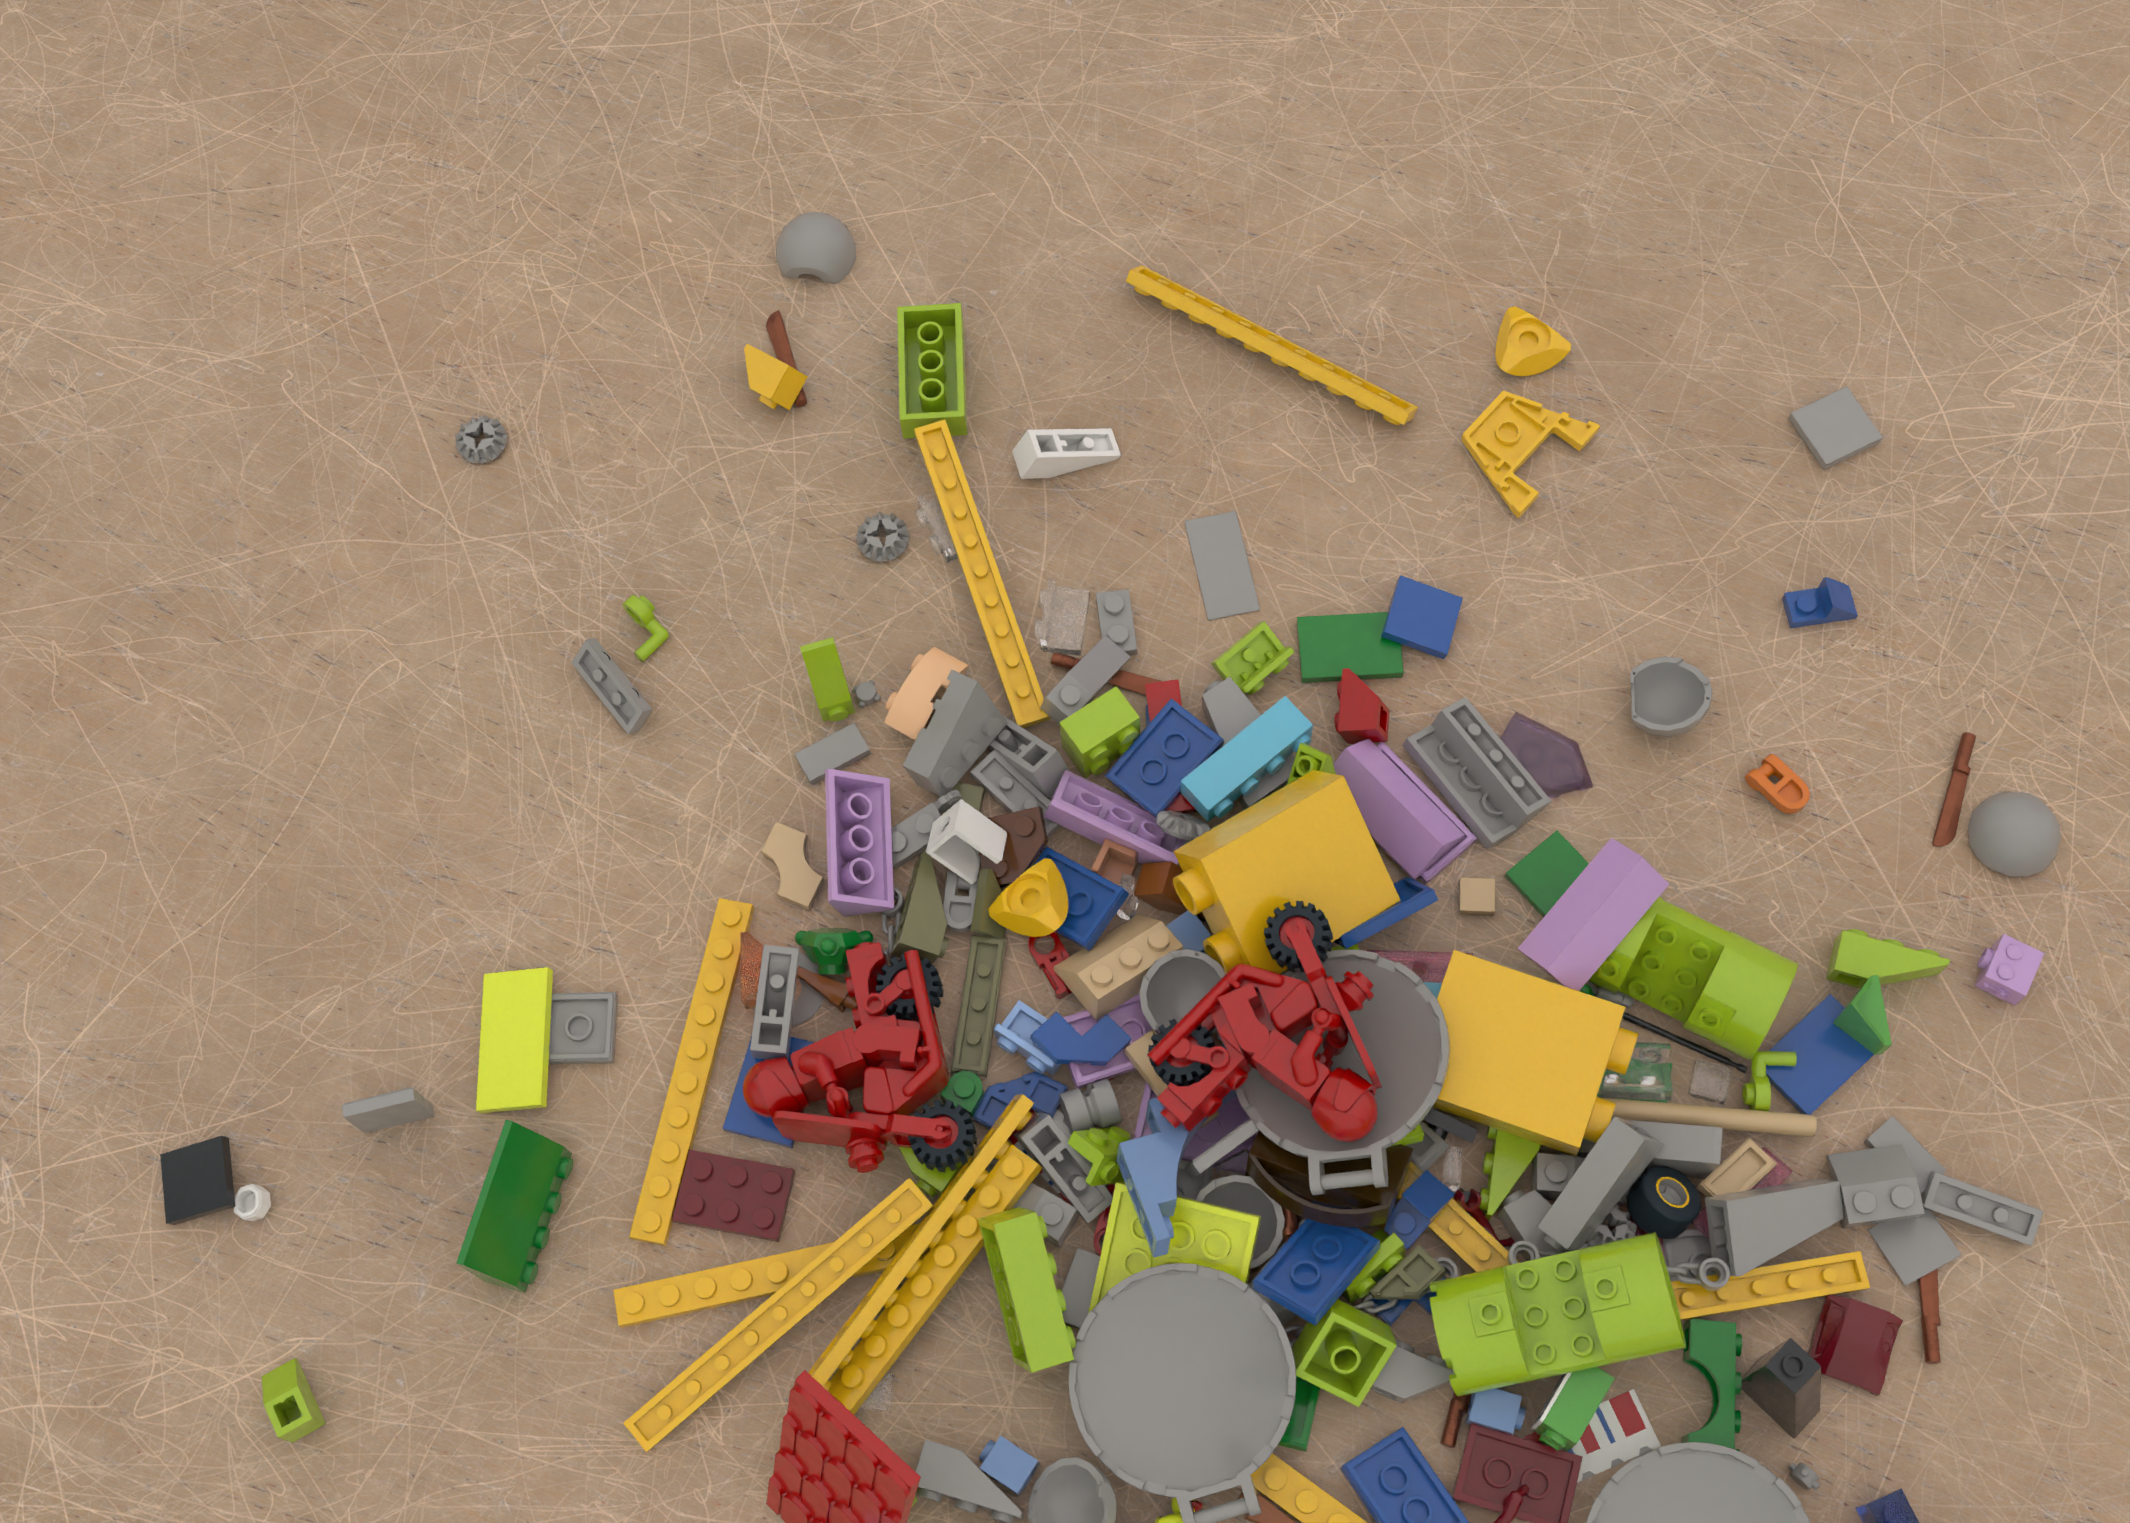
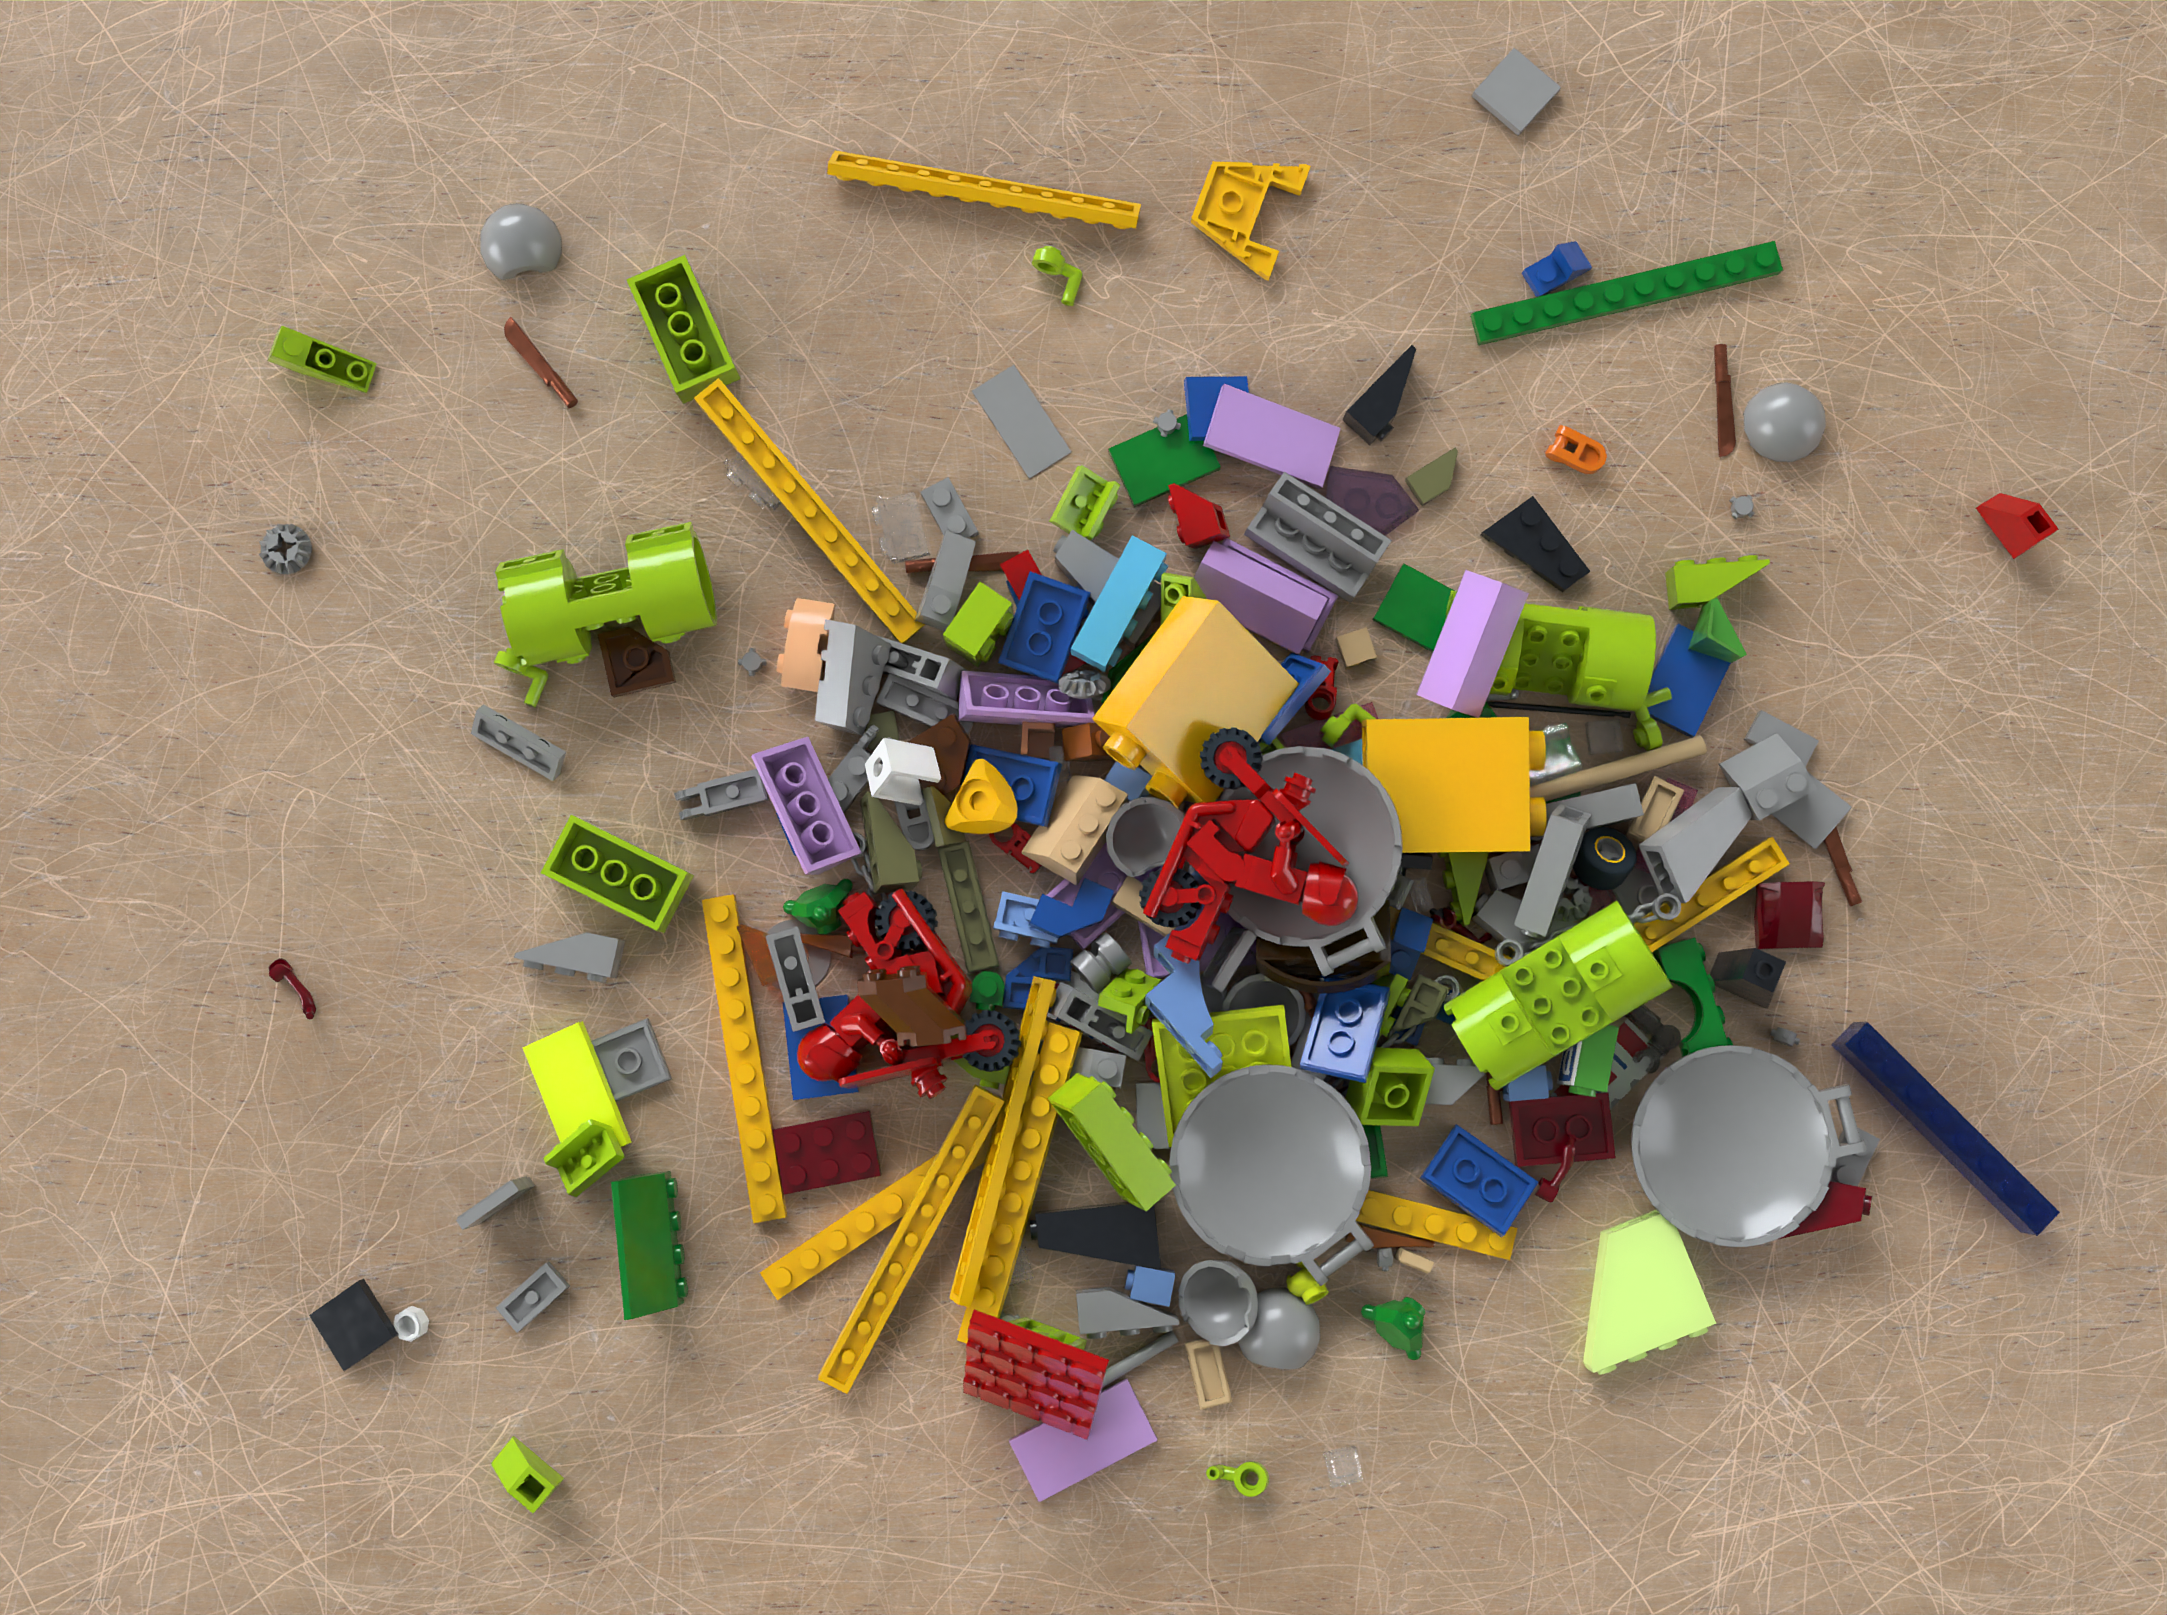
camera: 30 degrees left, 15 degrees up
(295, 814) = (282, 969): none -> dark red piece
(380, 1223) = (532, 1296): none -> light grey plate
(494, 1097) = (585, 1156): none -> lime bracket
(581, 903) = (586, 953): none -> light grey slope
(589, 287) = (320, 360): none -> lime slope
(649, 840) = (617, 874): none -> lime brick
(695, 572) = (553, 610): none -> lime cylinder
(754, 652) = (634, 662): none -> reddish brown plate
(772, 378) = (536, 390): yellow slope -> none
(783, 806) = (724, 794): none -> light grey hinge
(797, 879) = (764, 857): tan tile -> none
(828, 680) = (717, 669): lime slope -> none
(833, 753) = (745, 729): light grey tile -> none
(875, 1058) = (911, 1006): none -> reddish brown brick
(894, 544) = (718, 509): light grey gear -> none
(984, 1389) = (1101, 1231): none -> black slope
(1062, 451) = (837, 364): white slope -> none
(1309, 429) = (1052, 262): none -> lime plate
(1364, 612) = (1166, 423): none -> light grey piece
(1425, 961) = (1336, 727): none -> lime plate
(1428, 921) = (1325, 690): none -> red piece
(1466, 660) = (1271, 436): none -> lavender tile
(1527, 344) = (1217, 106): yellow hat -> none
(1584, 670) = (1378, 406): none -> black slope
(1618, 760) = (1433, 478): none -> olive tile
(1666, 1421) = (1662, 1040): none -> clear smoke bar
(1668, 696) = (1459, 407): light grey cylinder -> none
(1706, 860) = (1539, 544): none -> black wing
(1887, 652) = (1626, 293): none -> green plate
(1939, 902) = (1741, 506): none -> light grey piece
(1981, 1208) = (1857, 762): light grey plate -> none
(2008, 969) = (1817, 546): lavender head -> none

